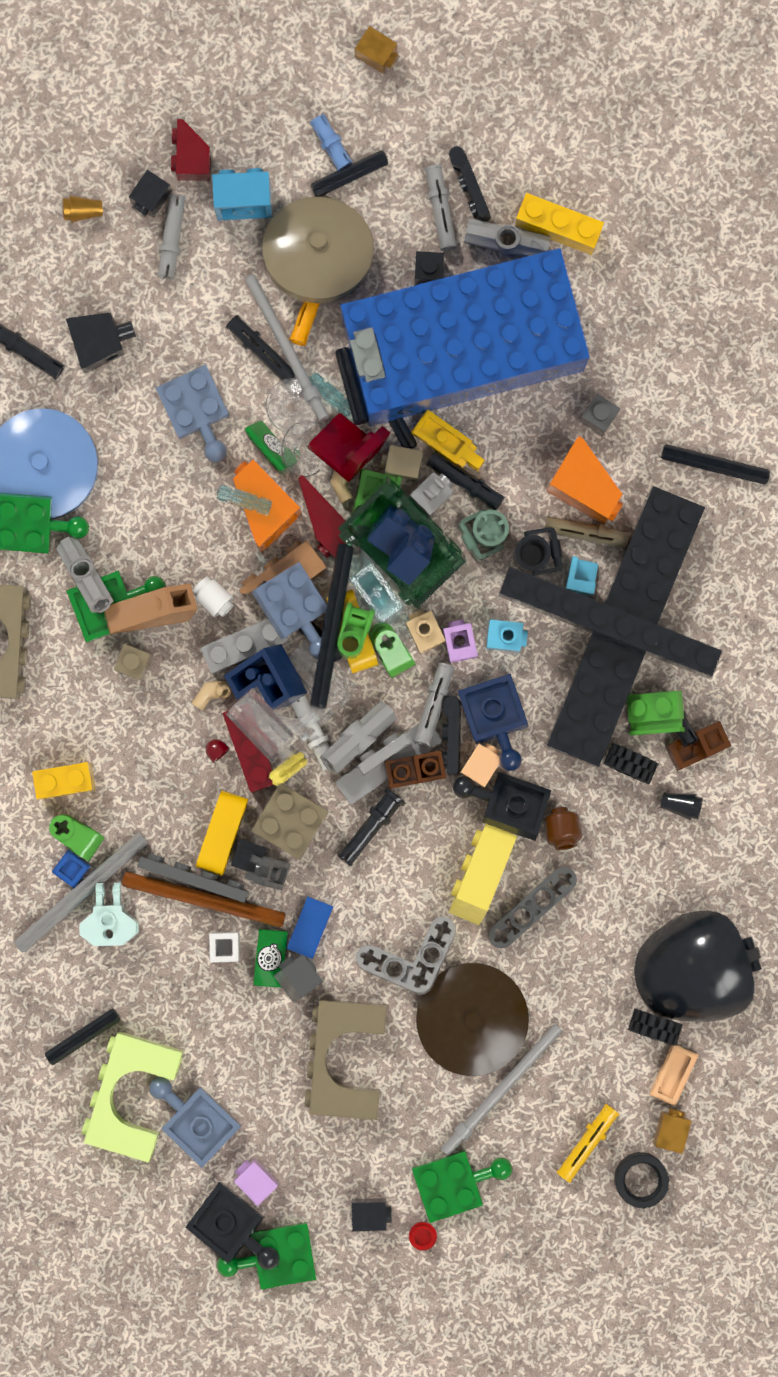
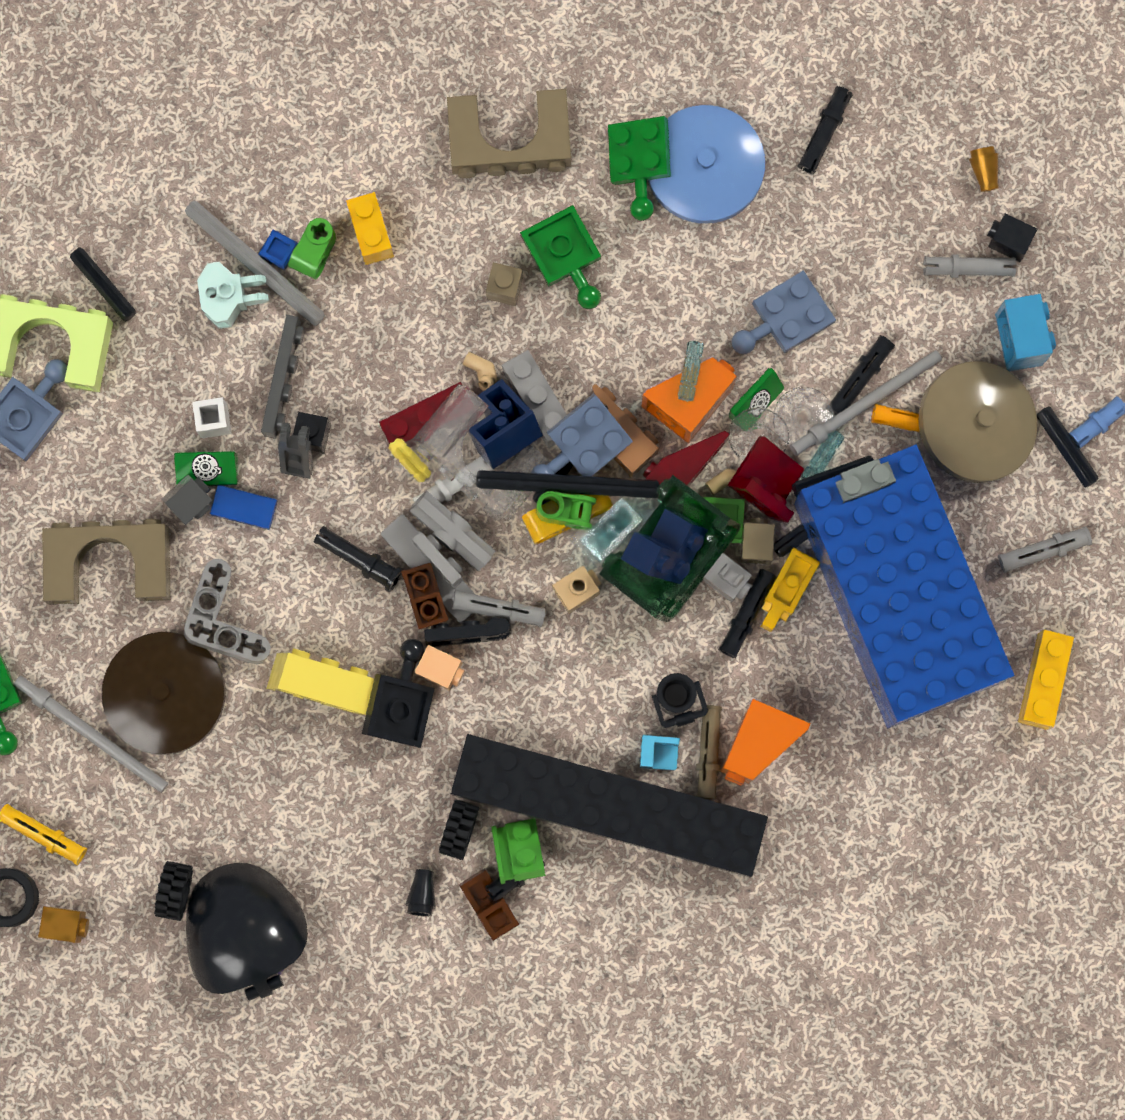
camera: 85 degrees right, 5 degrees down
(84, 575) = (590, 219): light grey piece -> none
(98, 339) = (846, 203): black torso -> none
(152, 609) = (562, 294): medium nougat slope -> none
(192, 154) = (1059, 276): dark red slope -> none
(203, 899) = (261, 391): dark orange axle -> none
(213, 597) = (585, 359): white brick -> none
(216, 749) = (422, 384): dark red hinge -> none
(222, 832) = (334, 400): yellow beam -> none
(290, 821) = (354, 470): dark tan brick -> none
(392, 651) = (549, 556): bright green piece -> none
(428, 267) = (976, 543): black brick -> none
(463, 652) = (558, 624): lavender brick -> none
(469, 183) = (1076, 577): black hinge -> none
(488, 236) = (1020, 605): light grey piece -> none
(489, 532) = (696, 641): sand green piece -> none
(495, 712) = (497, 674): dark blue plate -> none
(506, 636) = (582, 677): medium azure brick -> none
(532, 907) = (289, 745): dark grey beam -> none
(562, 828) = (379, 765): reddish brown head -> none
(599, 415) = (839, 750): dark grey brick -> none
(610, 623) = (607, 782): black brick -> none
(673, 1074) = (125, 920): light nougat tile -> none
(715, 464) = (803, 886): black axle -> none

